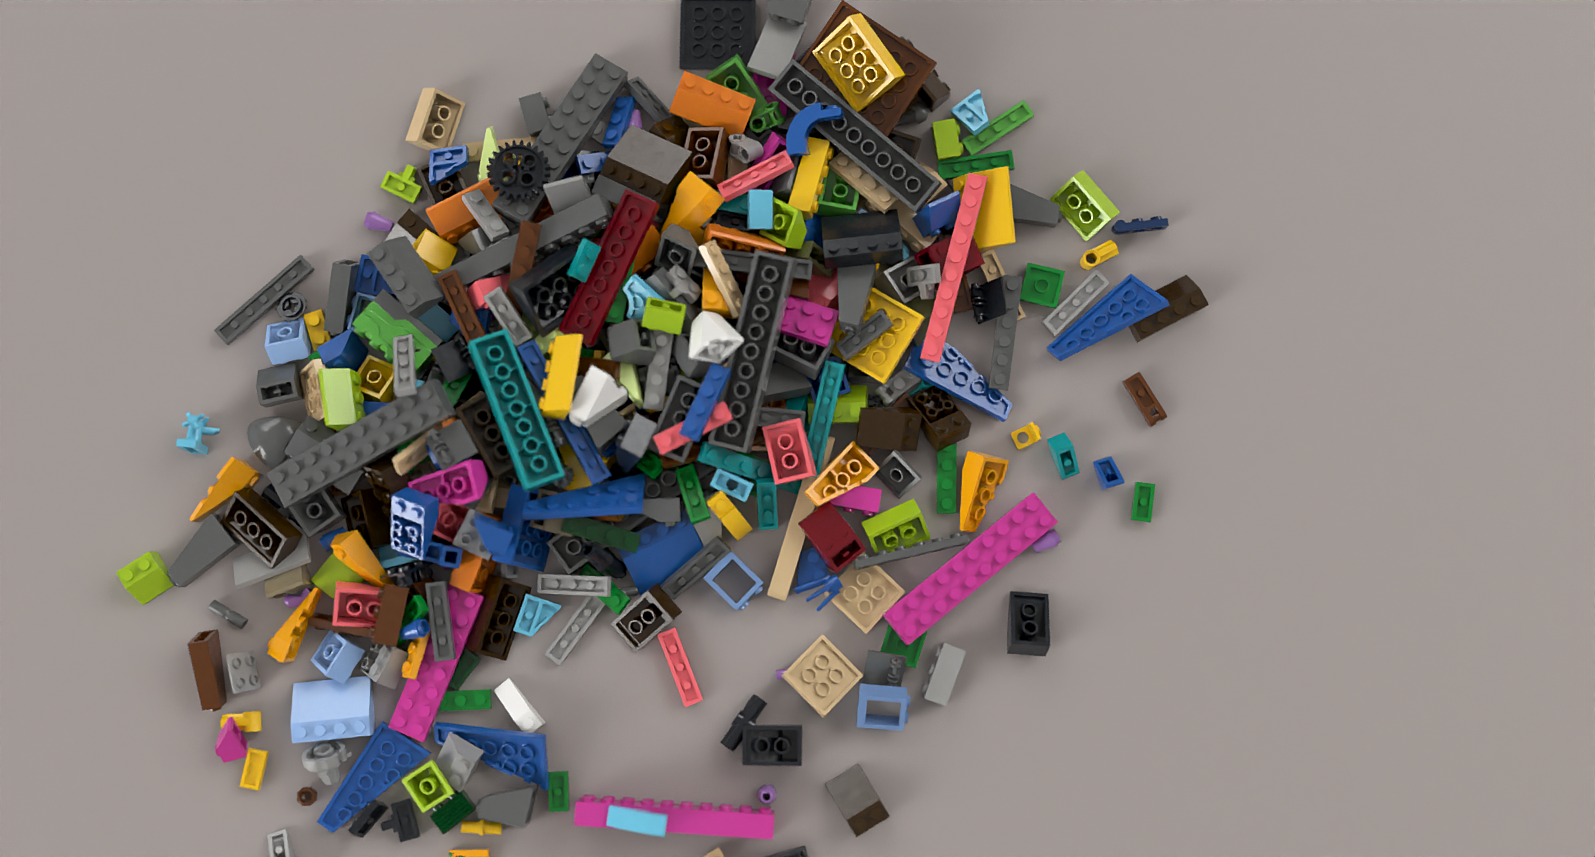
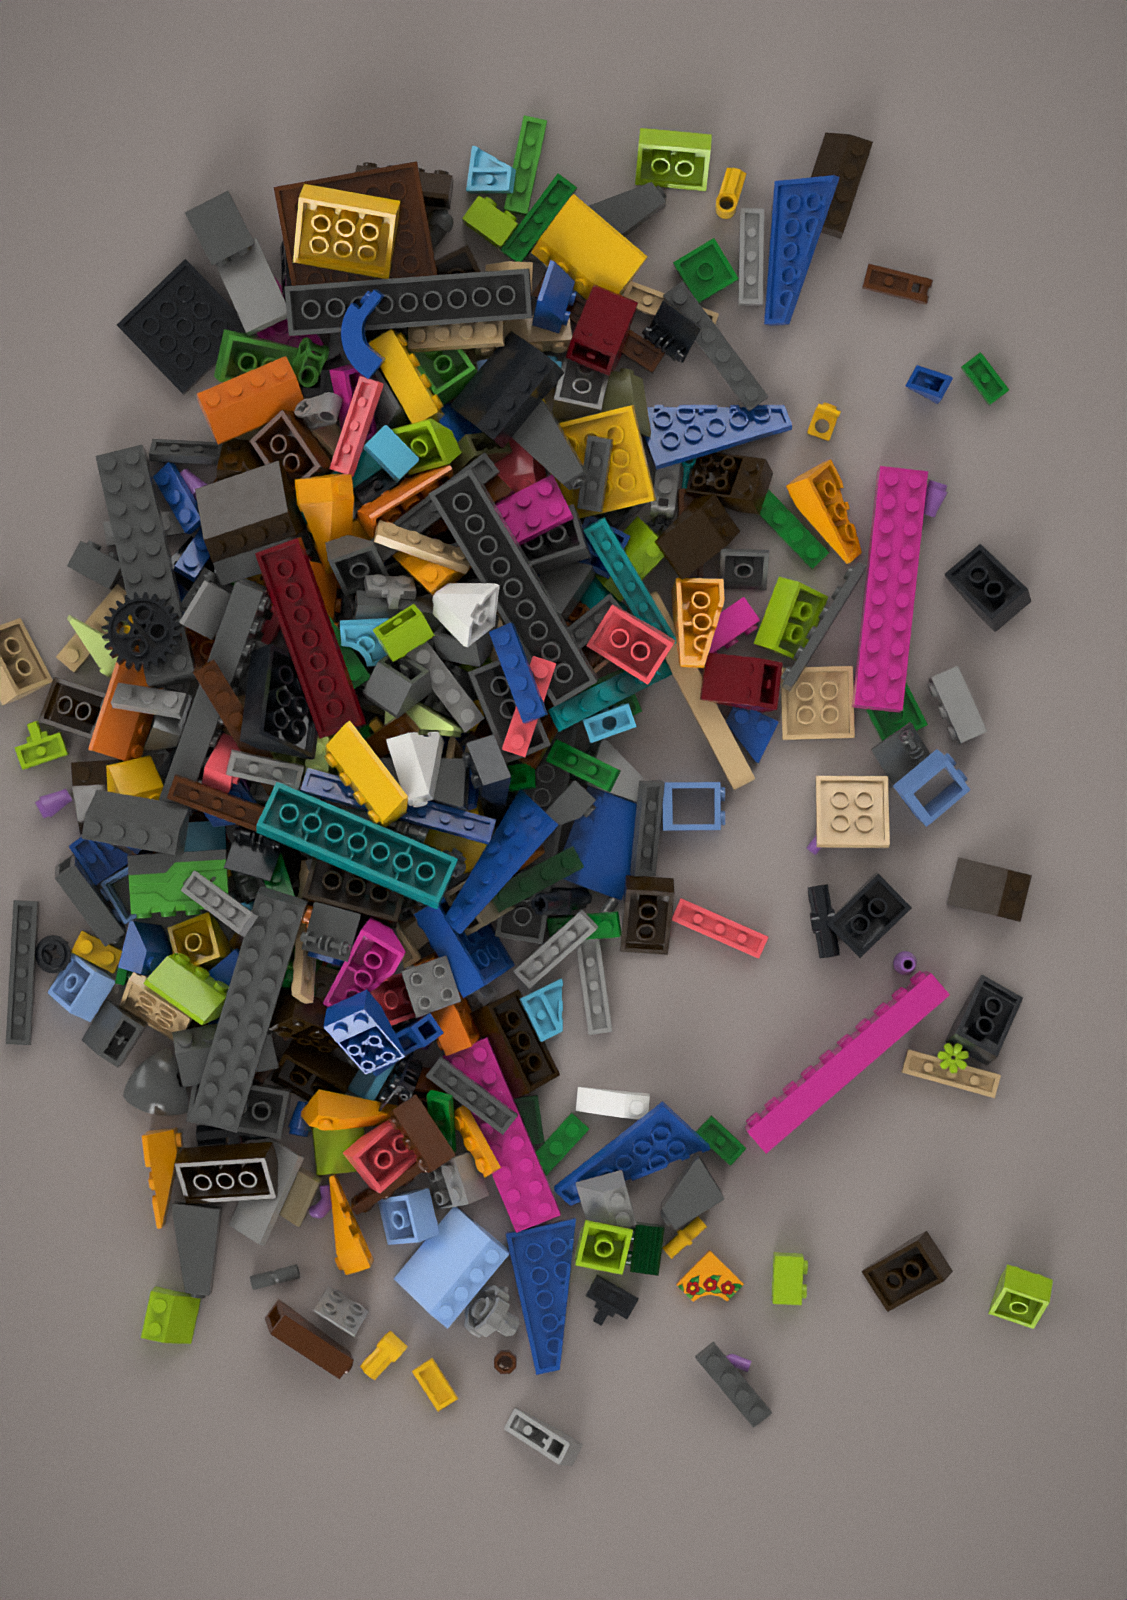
camera: 45 degrees left, 5 degrees up
(196, 429) = (83, 1148): medium azure piece -> none
(231, 742) = (392, 1382): dark pink slope -> none
(368, 818) = (578, 1327): black plate -> none
(416, 629) = (458, 1123): blue cone -> none
(446, 162) = (61, 687): blue wing -> none
(493, 533) = (447, 971): blue slope -> none
(584, 260) = (282, 653): teal plate -> none
(637, 820) = (817, 1094): medium azure slope -> none
(729, 515) = (633, 752): yellow arch -> none
(767, 504) = (654, 709): teal plate -> none
(831, 585) = (782, 724): blue plant -> none
(925, 278) = (598, 368): light grey hinge -> none
(954, 267) = (614, 333): coral plate -> none
(1063, 455) = (874, 406): teal slope -> none
(1138, 225) = (740, 129): dark blue plate -> none

